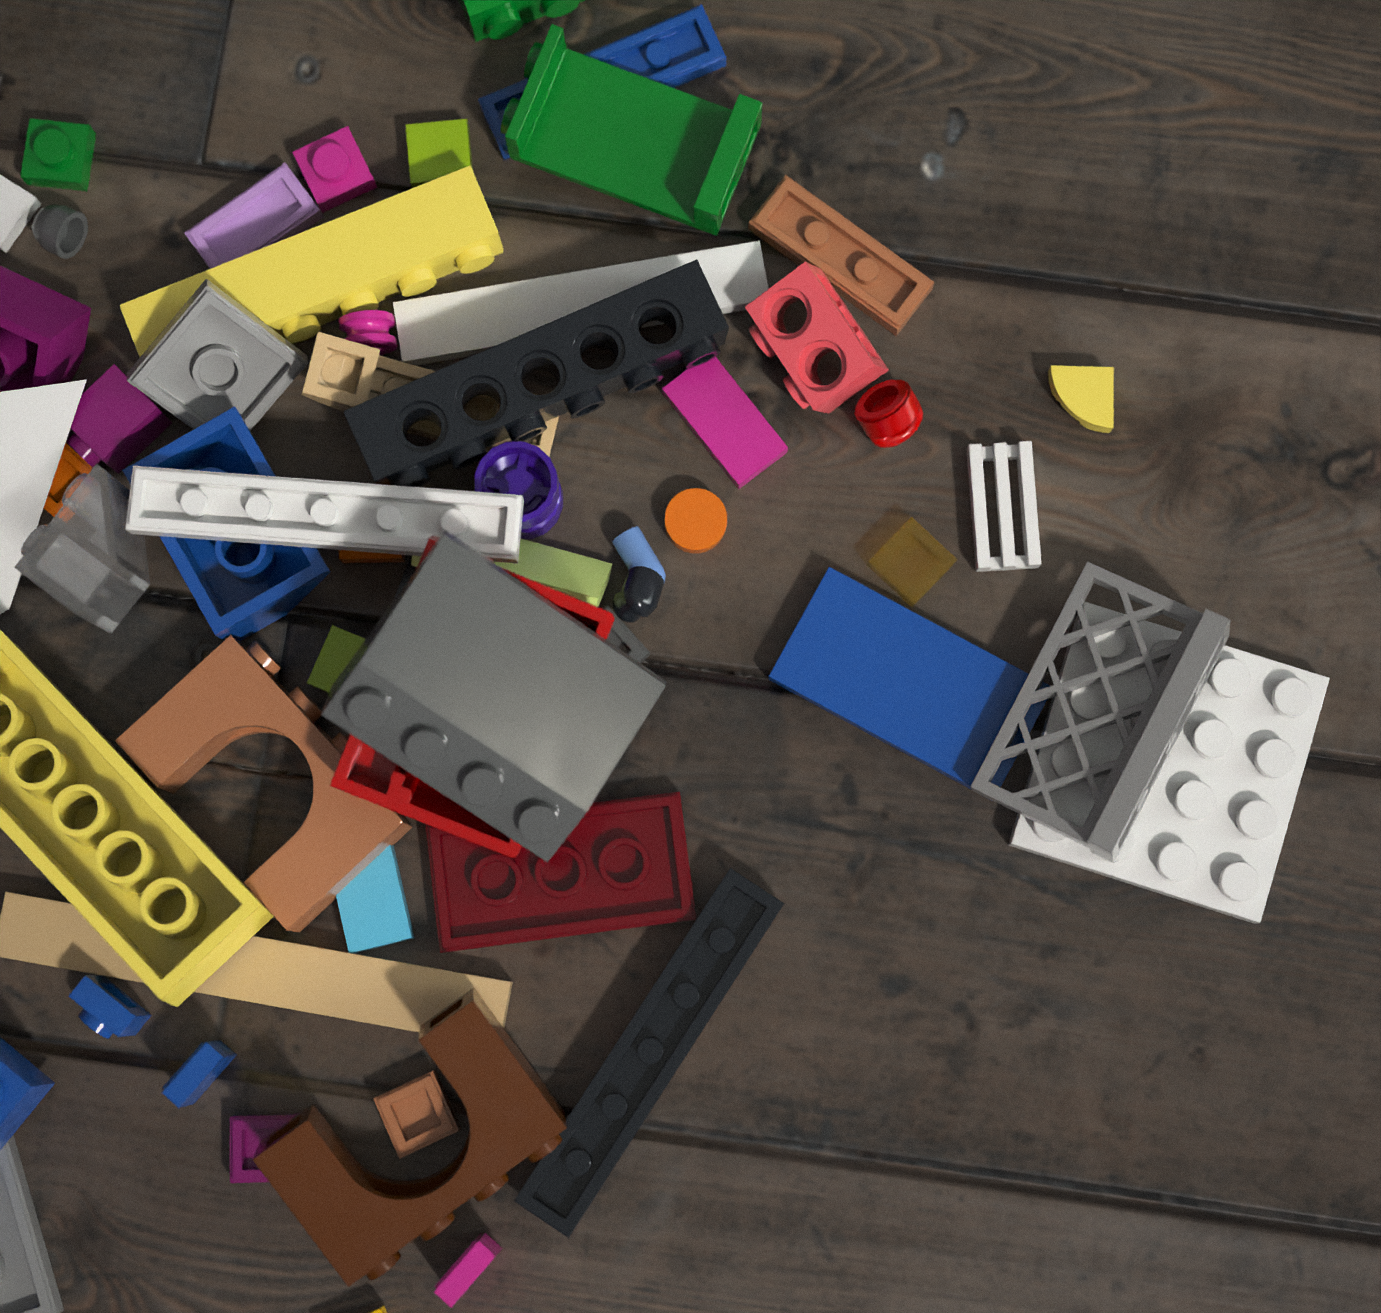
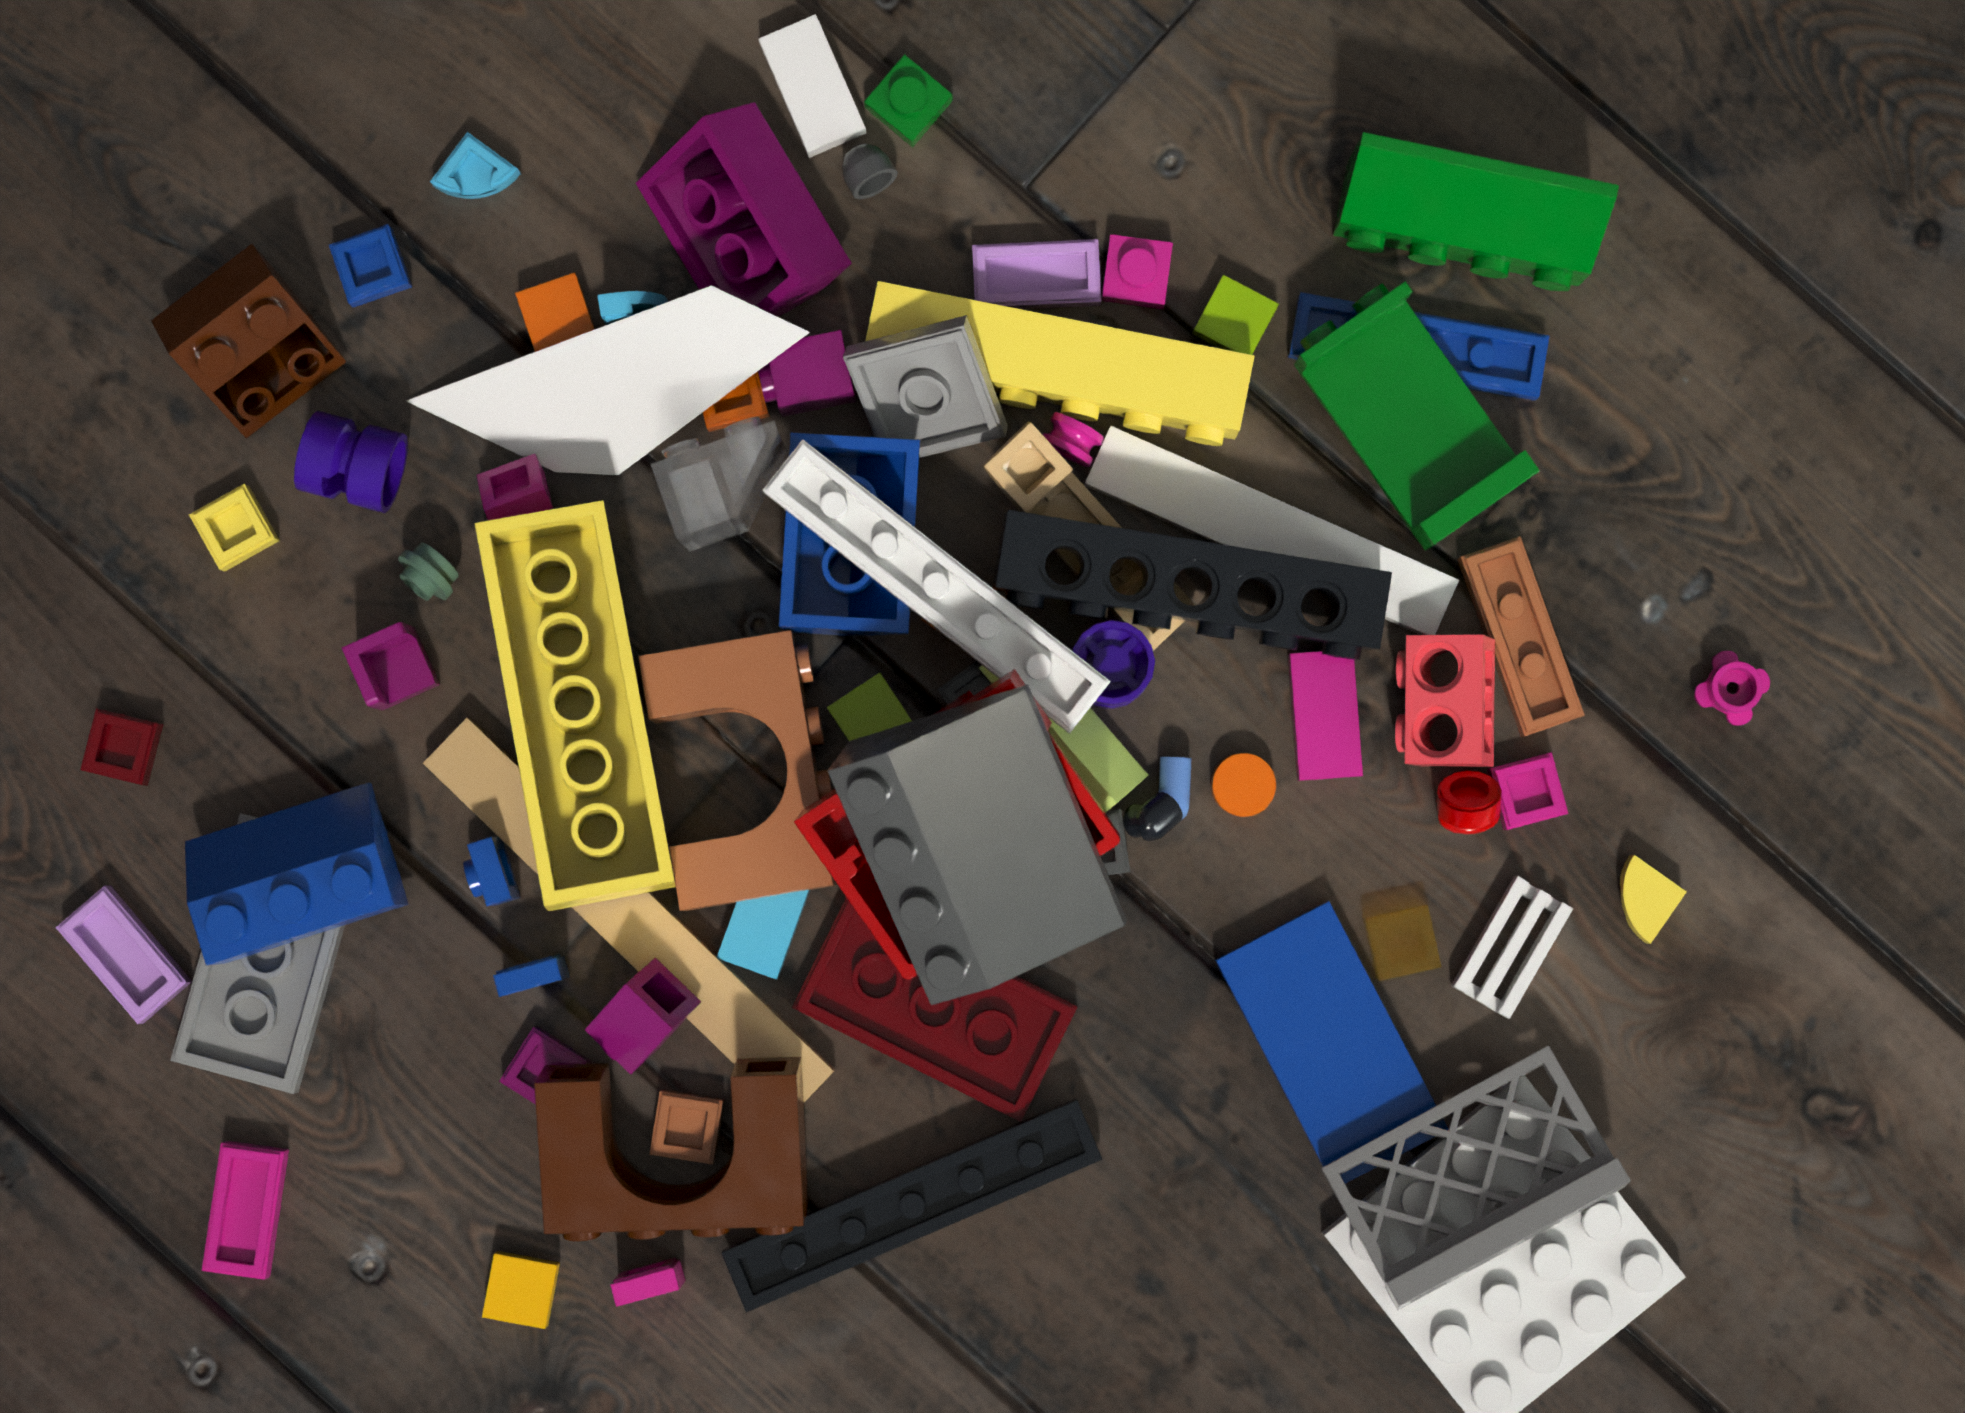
camera: 30 degrees right, 5 degrees up
(314, 1042) = (642, 1016): none -> magenta brick
(932, 372) = (1529, 791): none -> dark pink tile
(1042, 167) = (1750, 685): none -> dark pink plate

